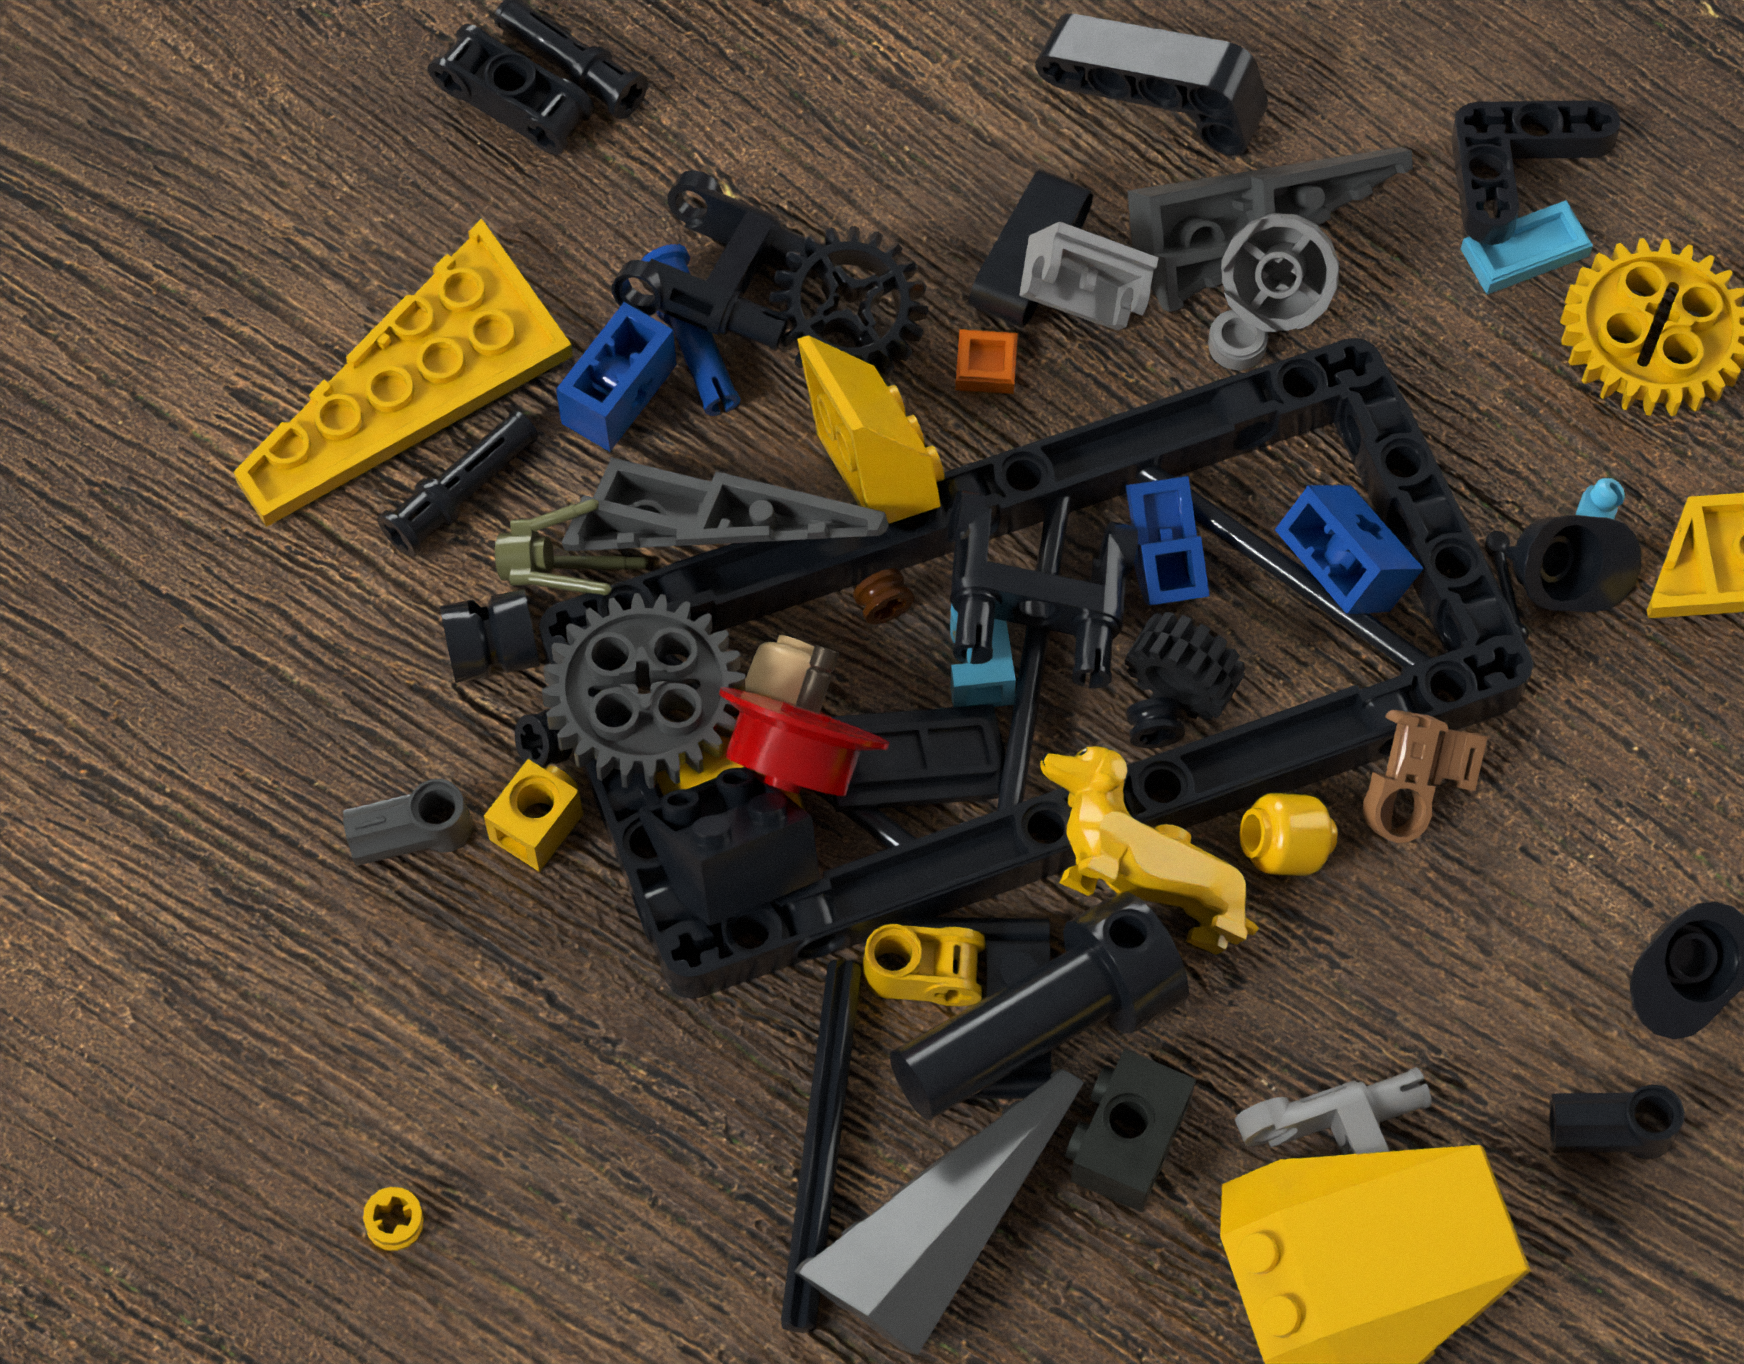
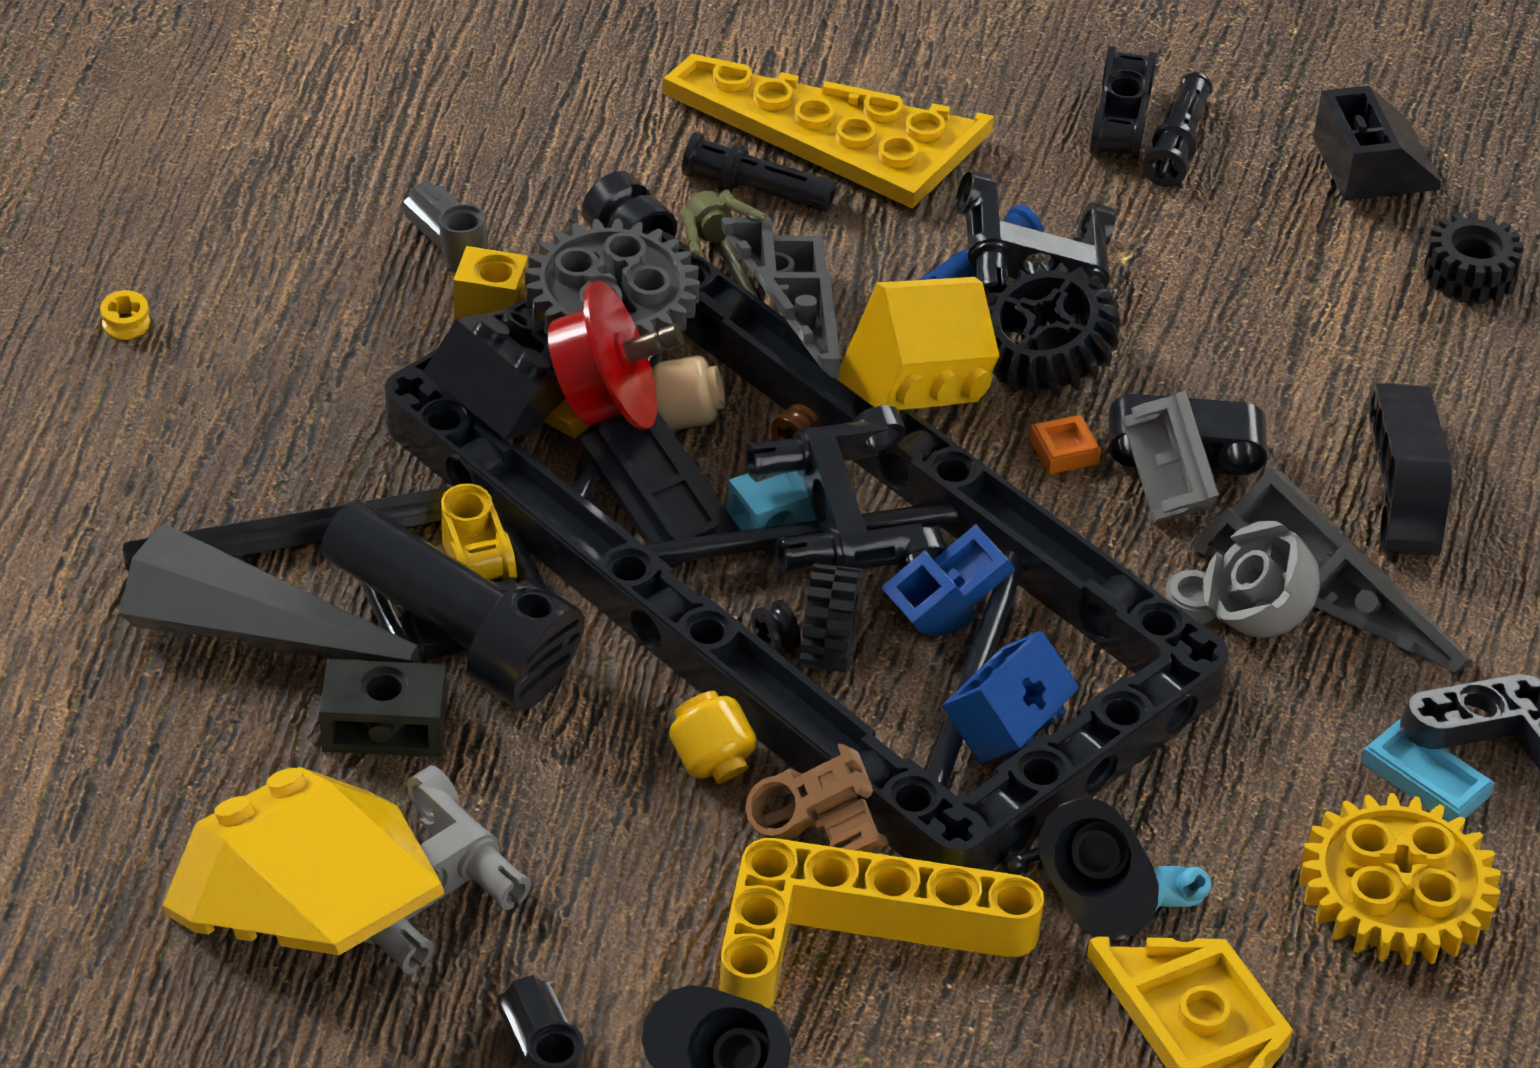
camera: 65 degrees right, 20 degrees down
(616, 376) = (896, 218): blue brick -> none
(1141, 859) = (624, 627): yellow animal -> none
(1534, 784) = (867, 896): none -> yellow beam

